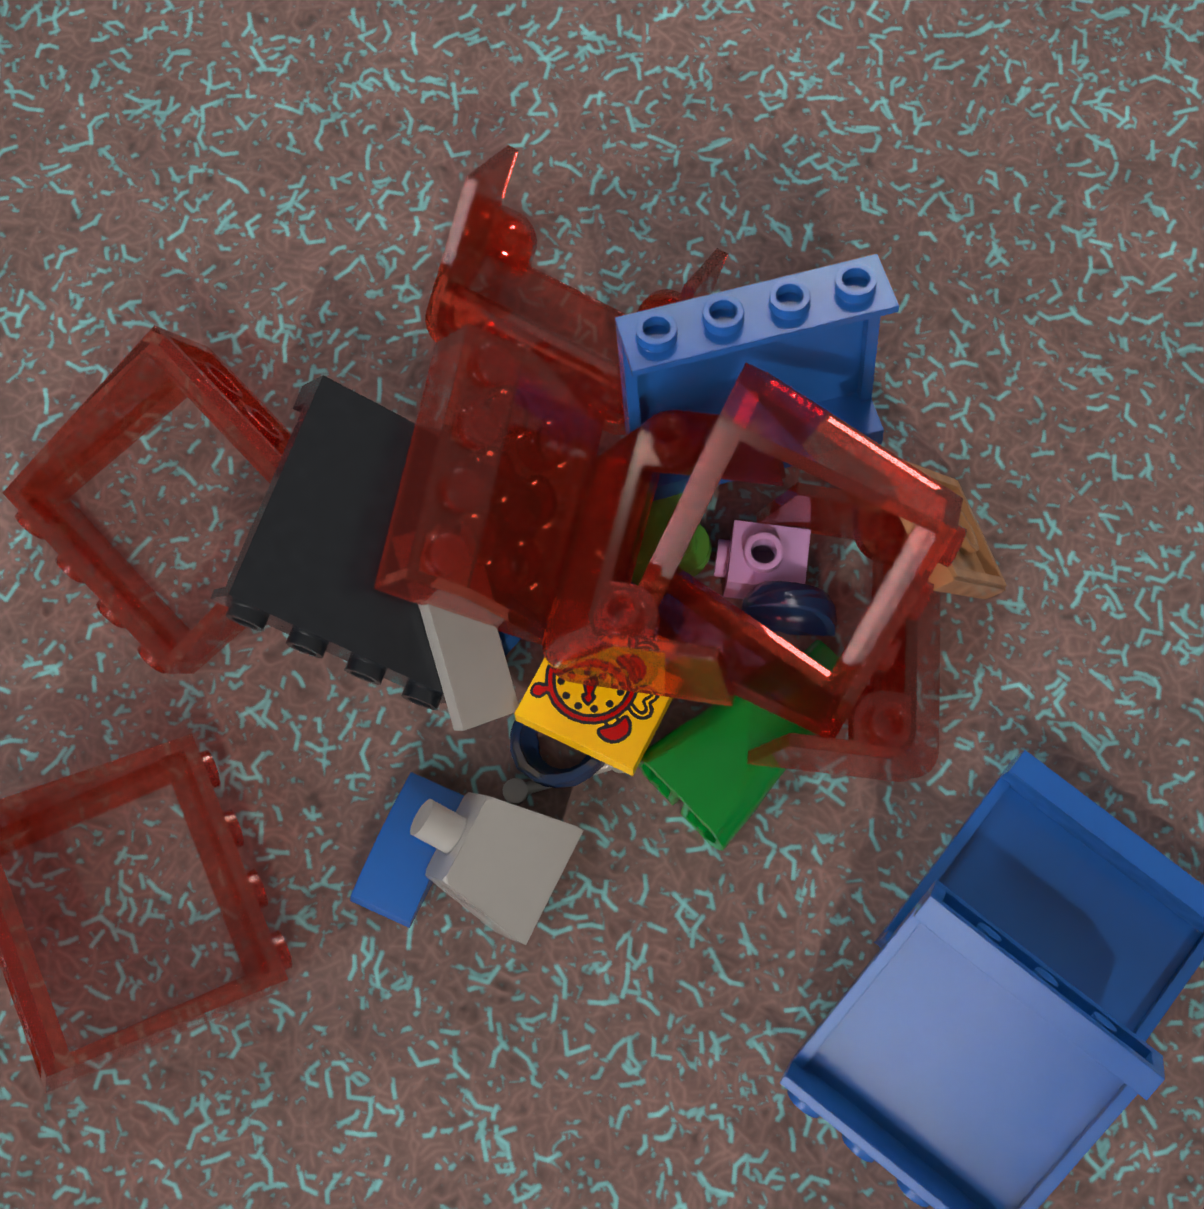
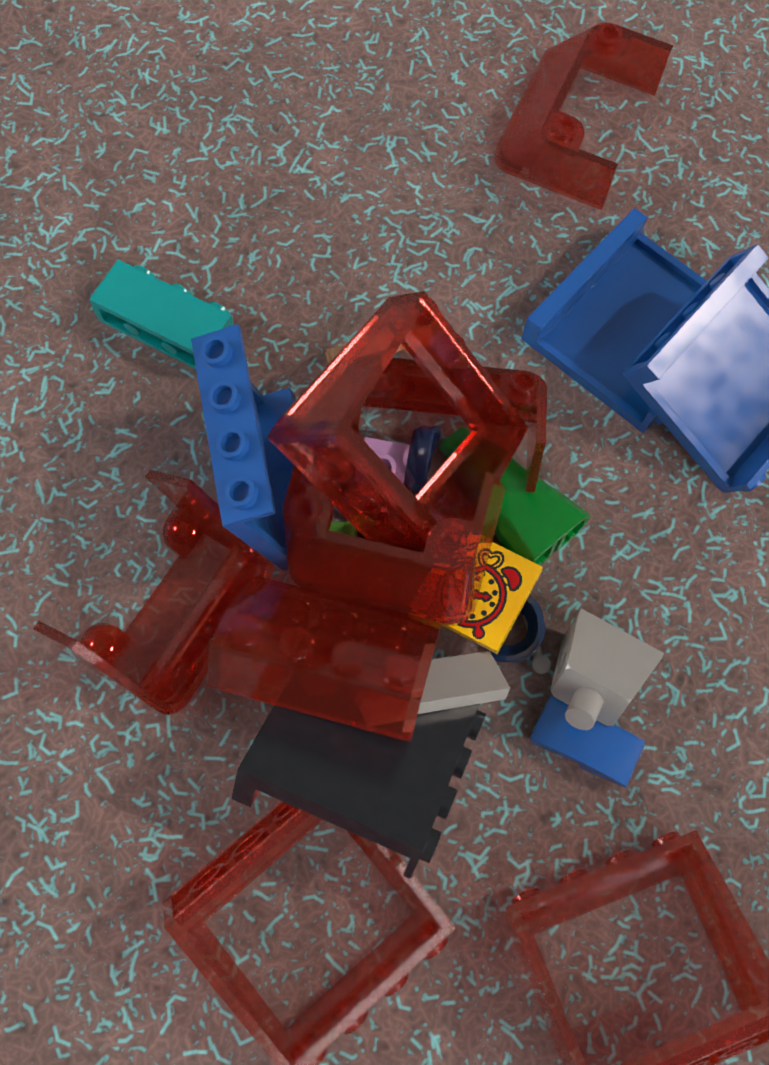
camera: 90 degrees left, 5 degrees down
(979, 260) = (156, 311): none -> teal brick

